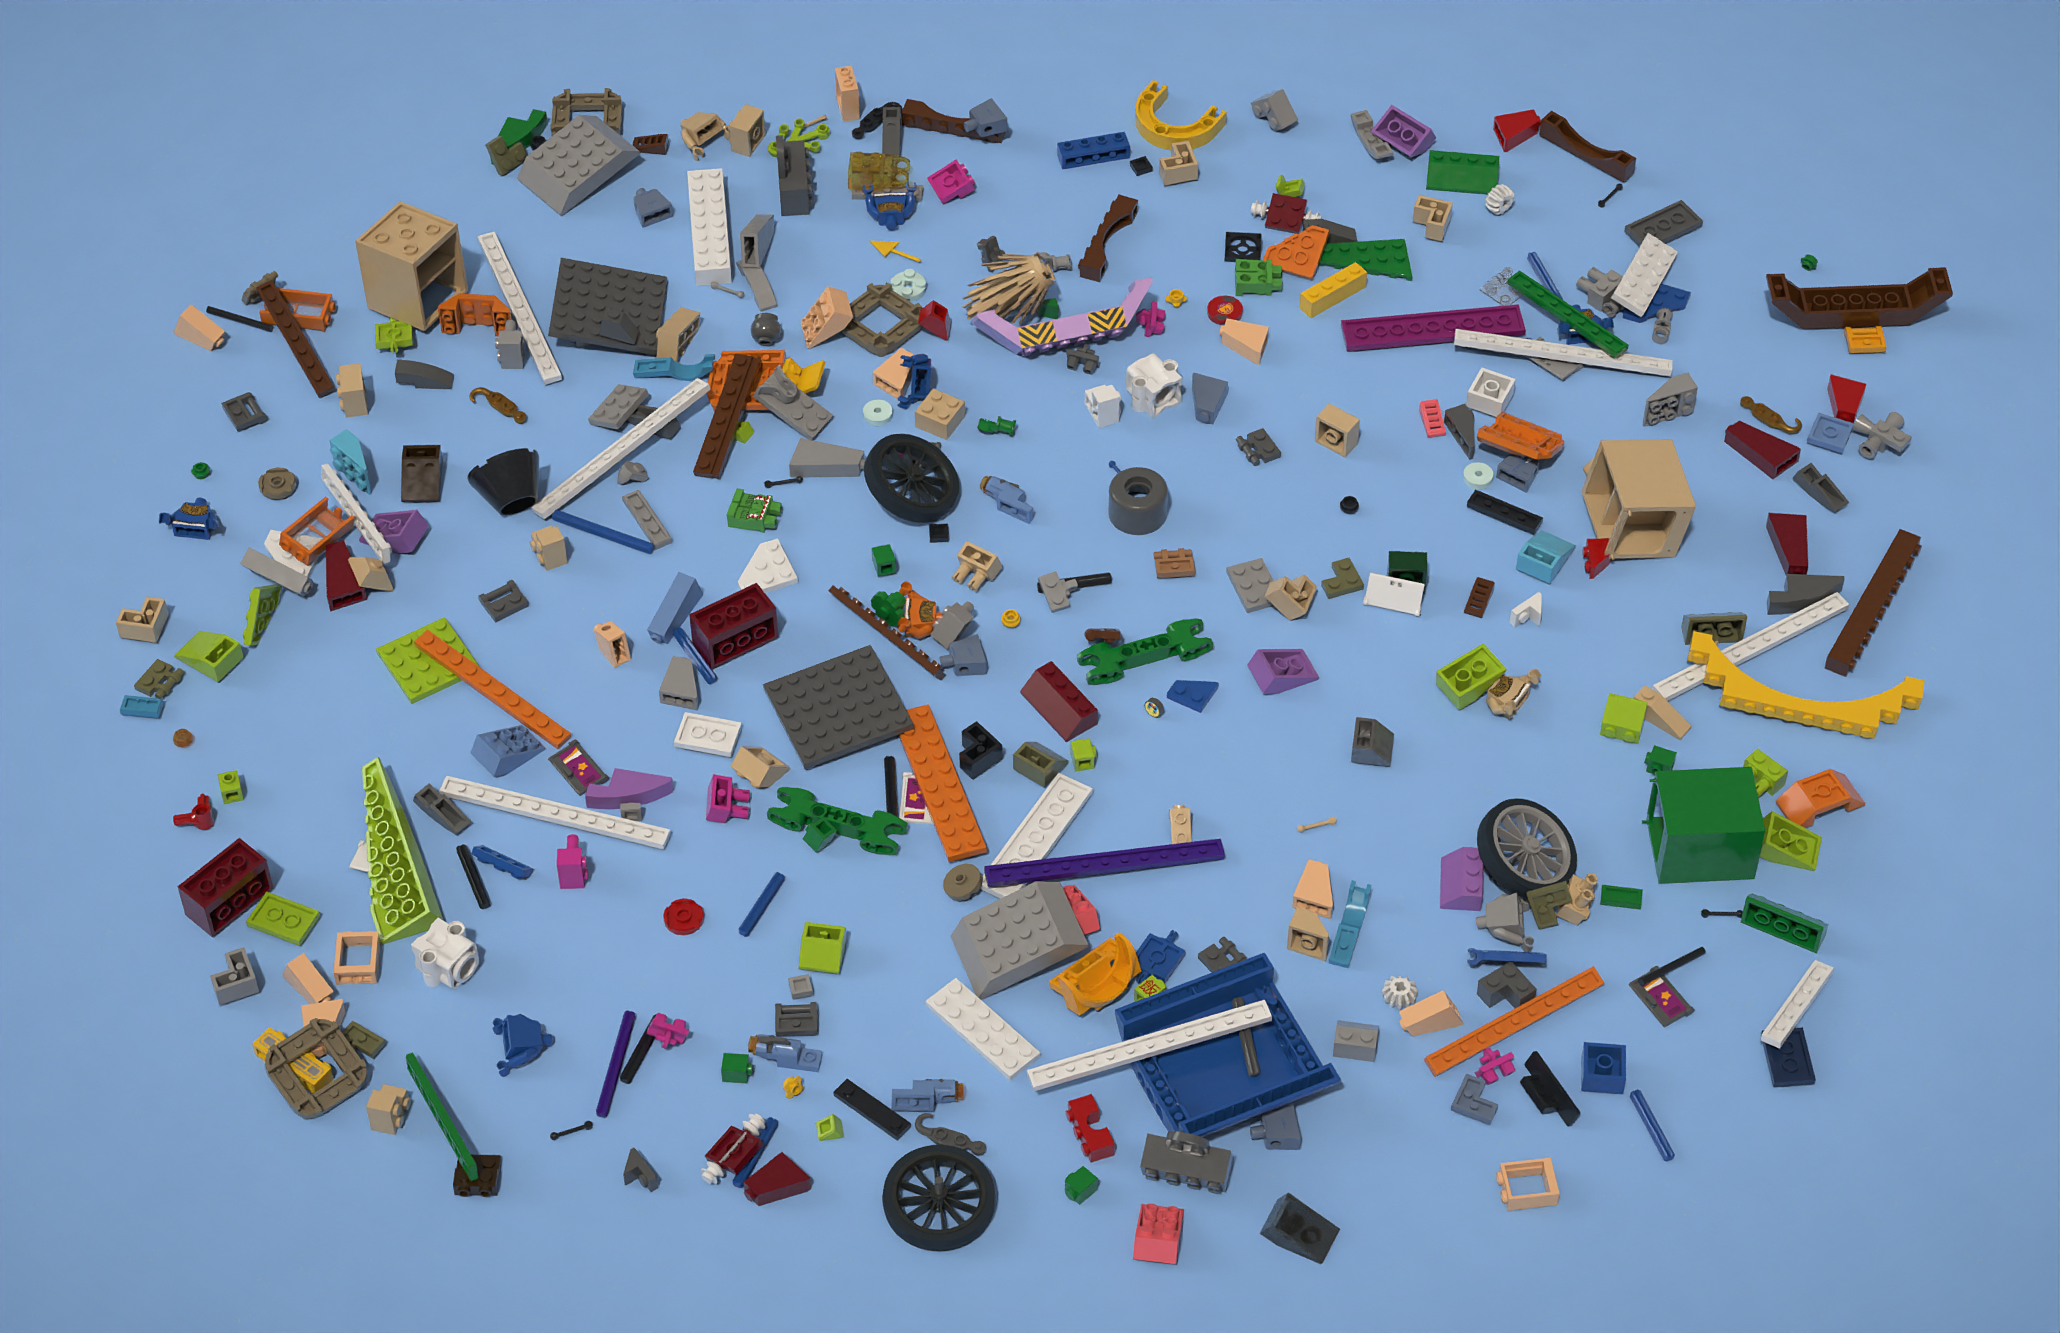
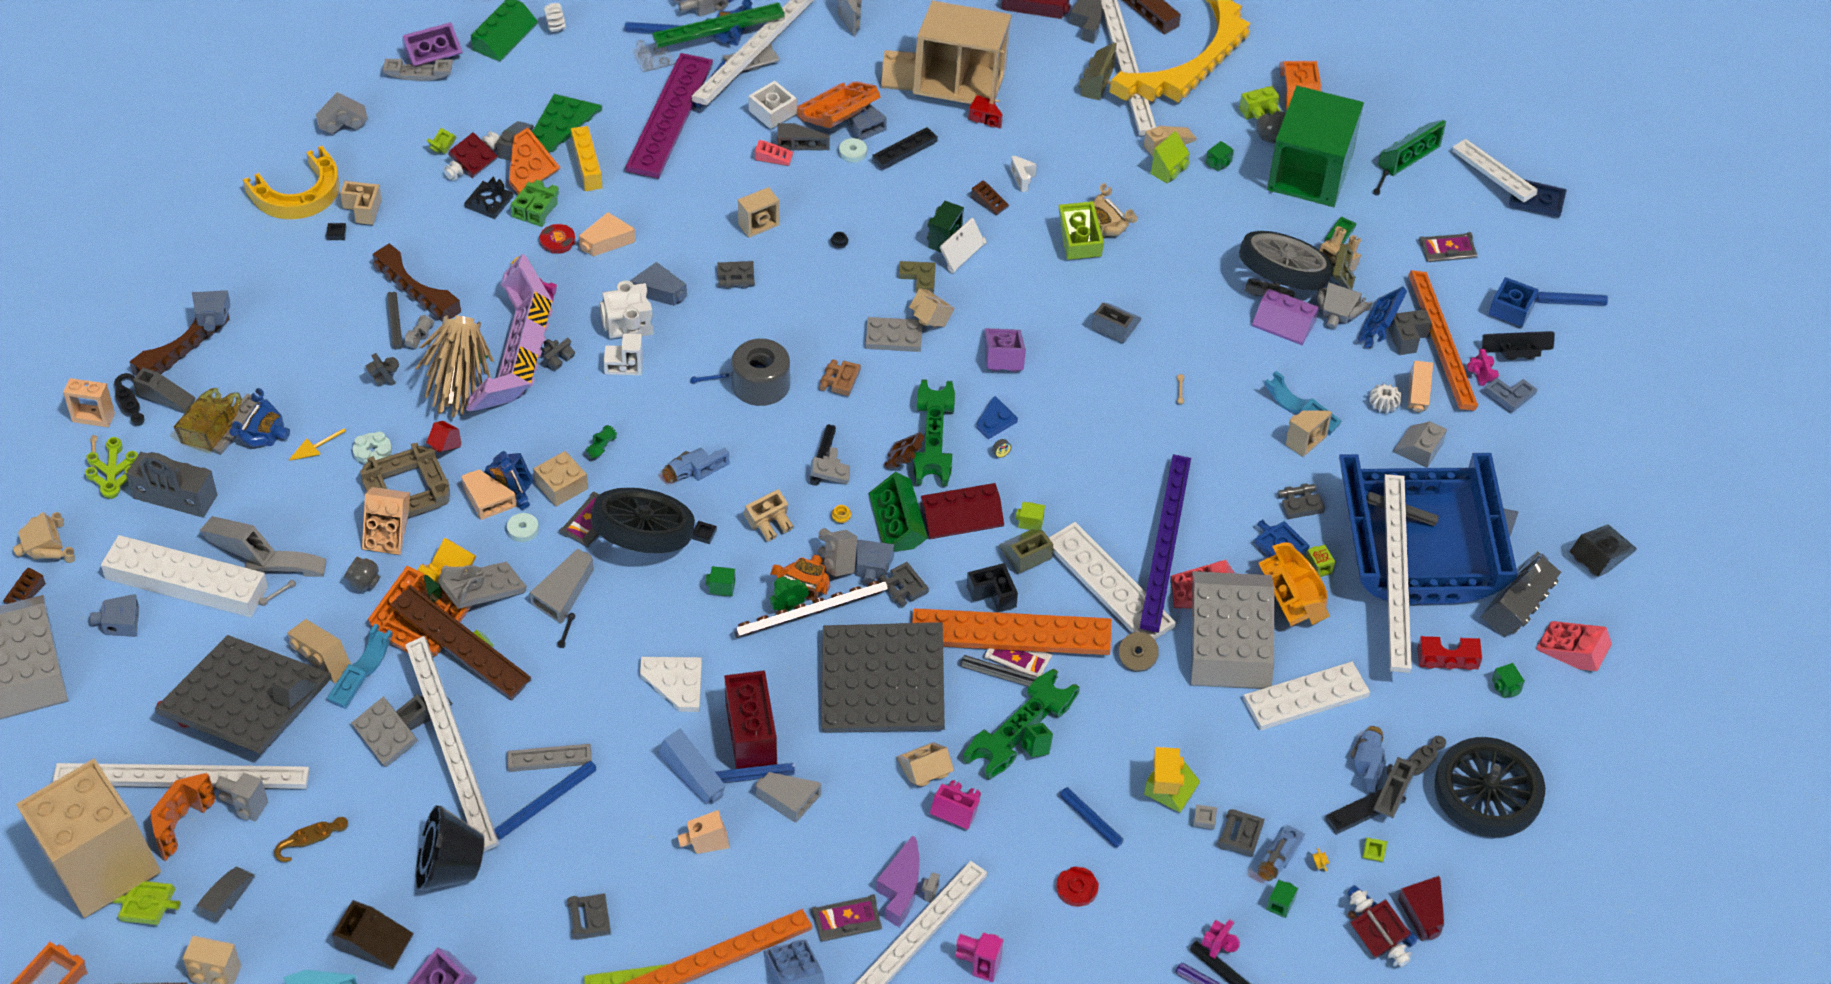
camera: 70 degrees left, 0 degrees up
(549, 547) = (545, 849): tan brick -> none
(631, 471) = (482, 750): light grey plate -> none
(707, 734) = (862, 793): white plate -> none
(747, 130) = (76, 499): tan brick -> none
(753, 511) = (596, 664): bright green hips -> none
(766, 372) = (433, 589): none -> dark green slope
(816, 928) = (1167, 770): none -> yellow brick
(895, 1118) = (1395, 787): none -> dark grey slope
(952, 181) = (262, 368): dark pink plate -> none
(956, 692) = (908, 580): none -> dark grey plate
(1027, 658) = (898, 513): none -> green slope
(1063, 240) = (394, 320): none -> dark grey axle
(1093, 150) = (295, 255): blue brick -> none
(1180, 824) = (1145, 474): tan bracket -> none
(1314, 890) = (1255, 412): light nougat slope -> none
(1434, 214) = (544, 62): tan brick -> none
(1528, 1168) = (1600, 375): light nougat window -> none
(1544, 556) = (969, 141): medium azure slope -> none
(1672, 966) = (1434, 245): black bar -> none

